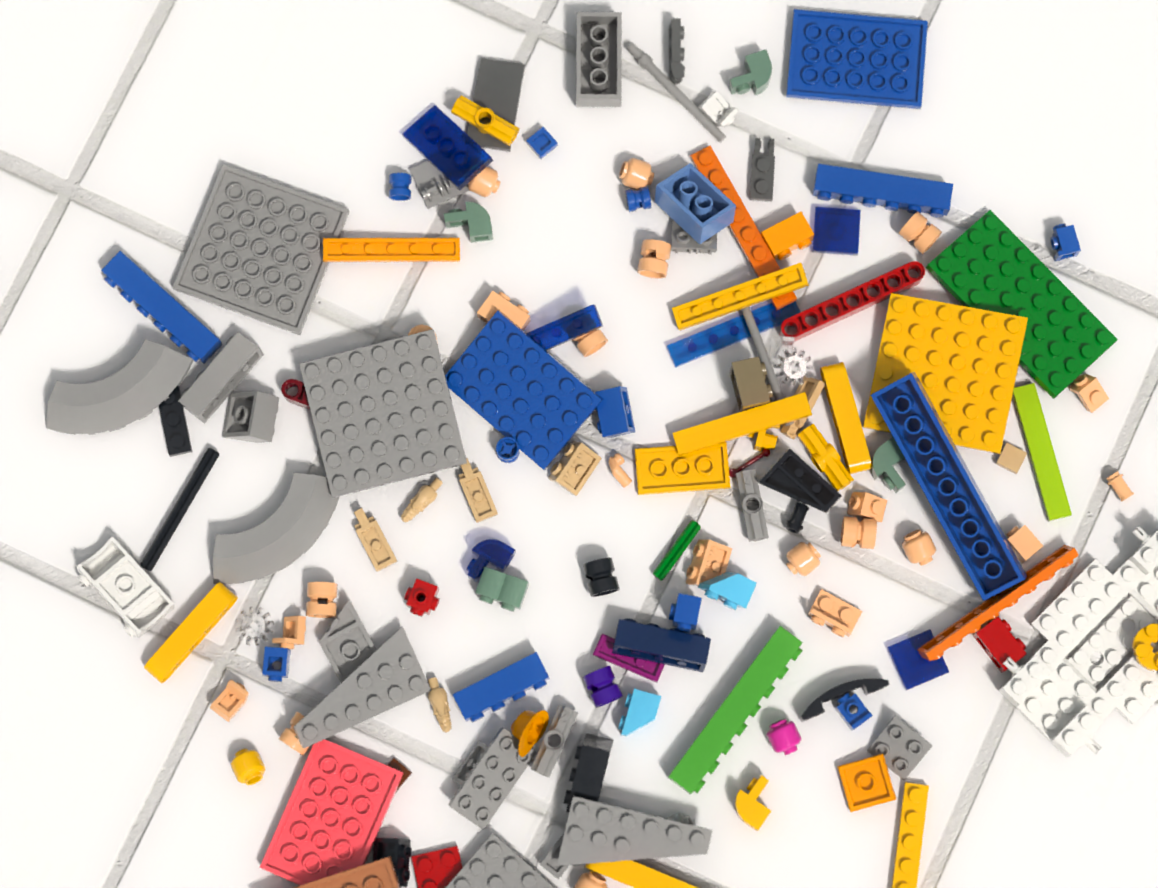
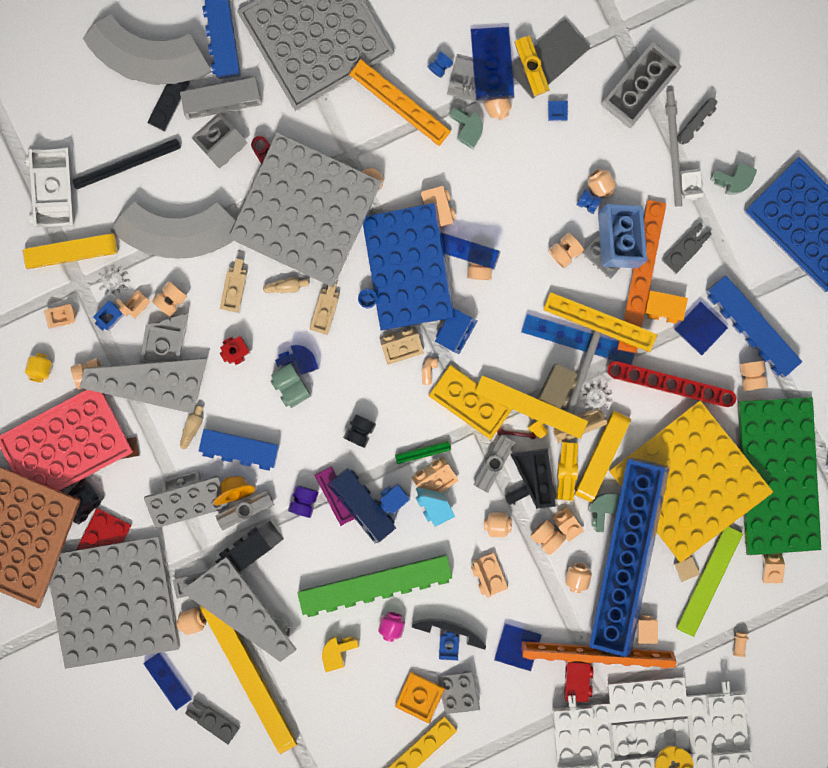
camera: 30 degrees right, 10 degrees up
(641, 711) = (314, 537): medium azure slope -> none

